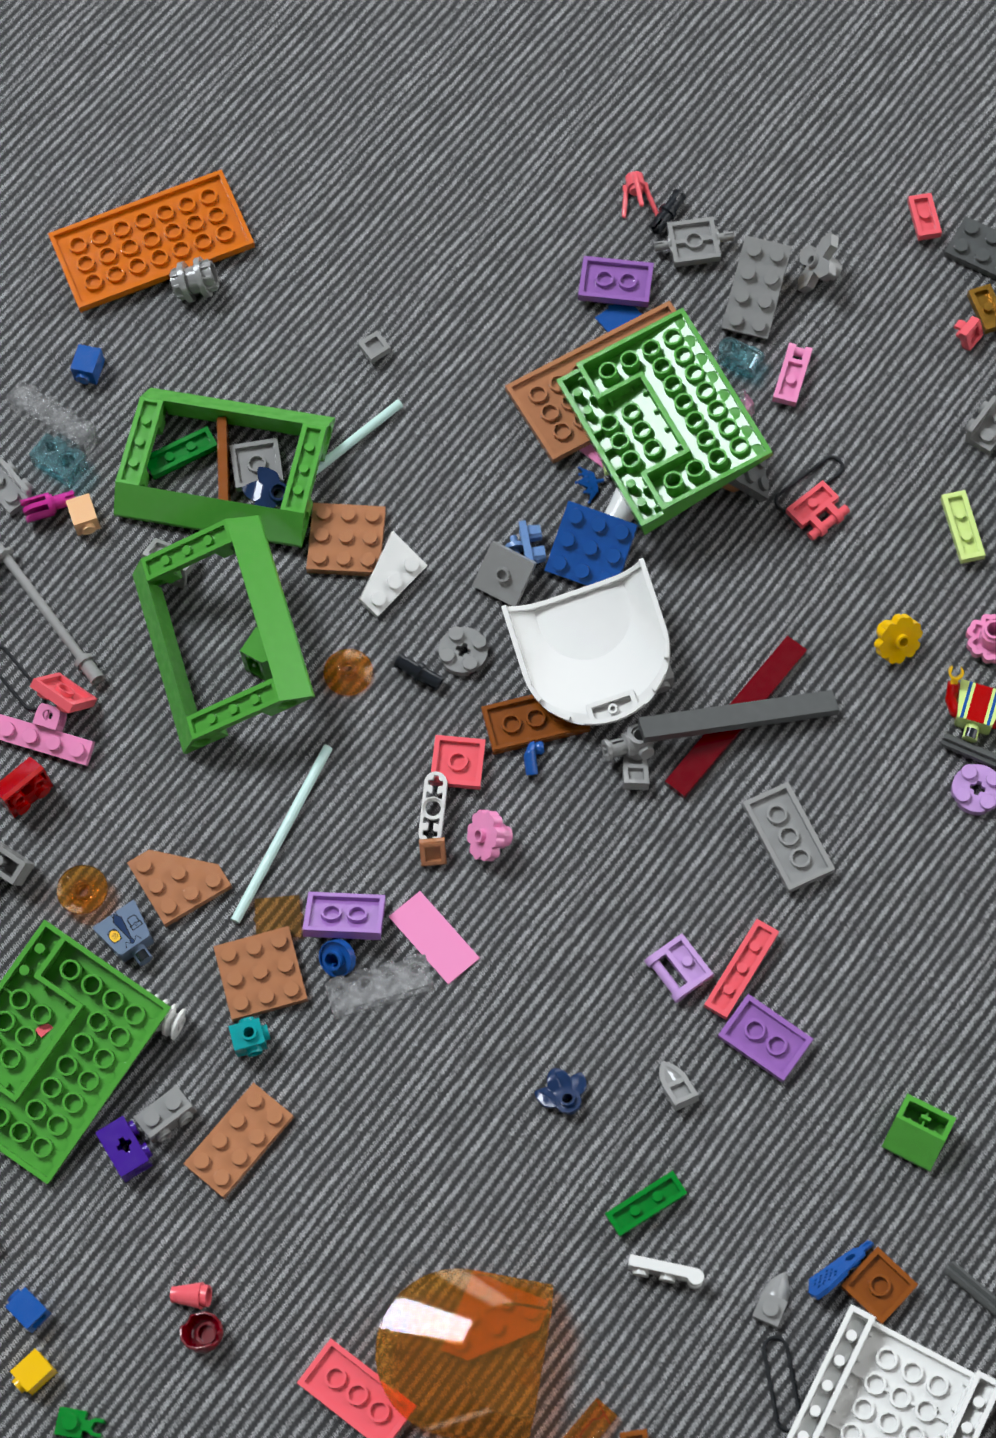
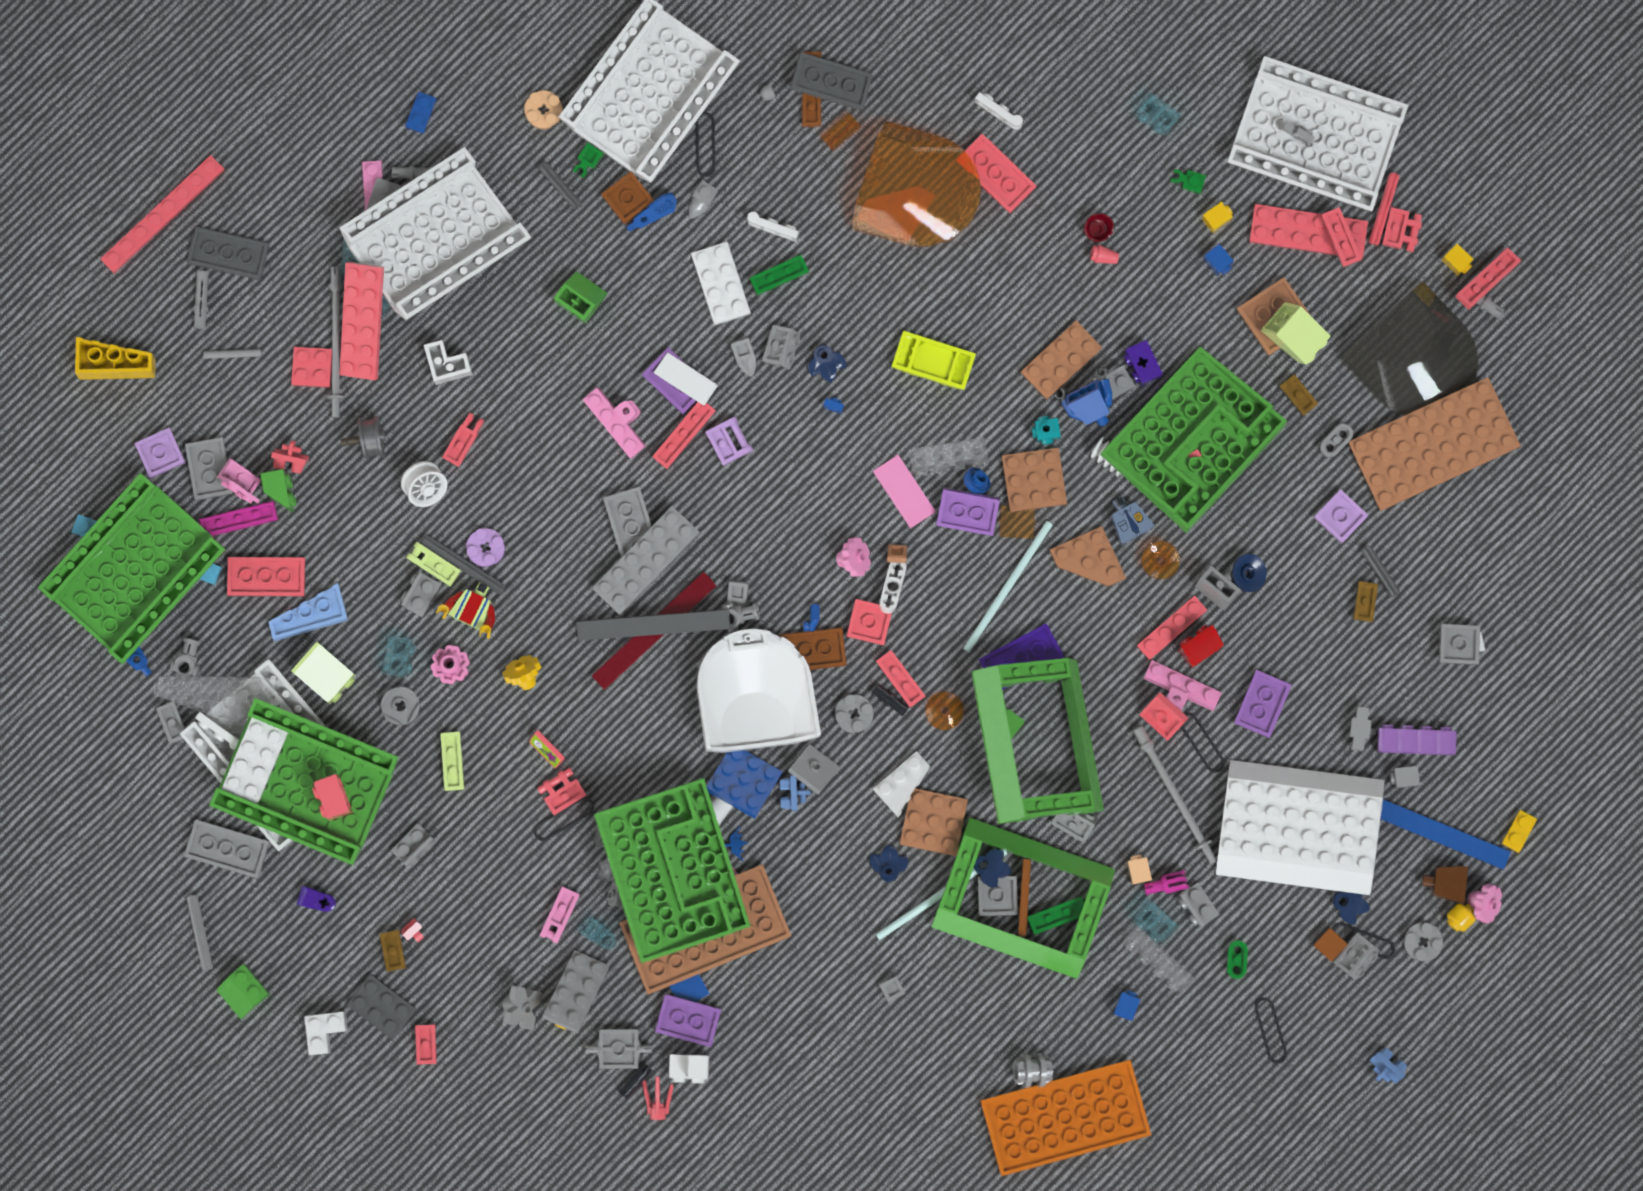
camera: 175 degrees left, 15 degrees up
(62, 810) = (1171, 628): none -> coral plate
(195, 1079) = (1090, 401): none -> torso
(253, 747) = (1031, 647): none -> dark purple plate
(396, 486) = (888, 861): none -> dark blue plate
(408, 698) = (900, 679): none -> coral plate
(414, 1113) = (933, 360): none -> neon yellow slope
(543, 1033) = (833, 405): none -> blue plate
(604, 231) = (689, 1067): none -> white brick
(627, 1103) = (781, 347): none -> light grey bracket
(726, 1183) = (720, 283): none -> white plate
(752, 1039) = (685, 379): none -> white piece
(762, 795) = (646, 560): none -> light grey plate
(835, 974) = (617, 420): none -> bright pink plate
(844, 558) = (546, 749): none -> slope
(944, 1336) = (590, 157): none -> green plate

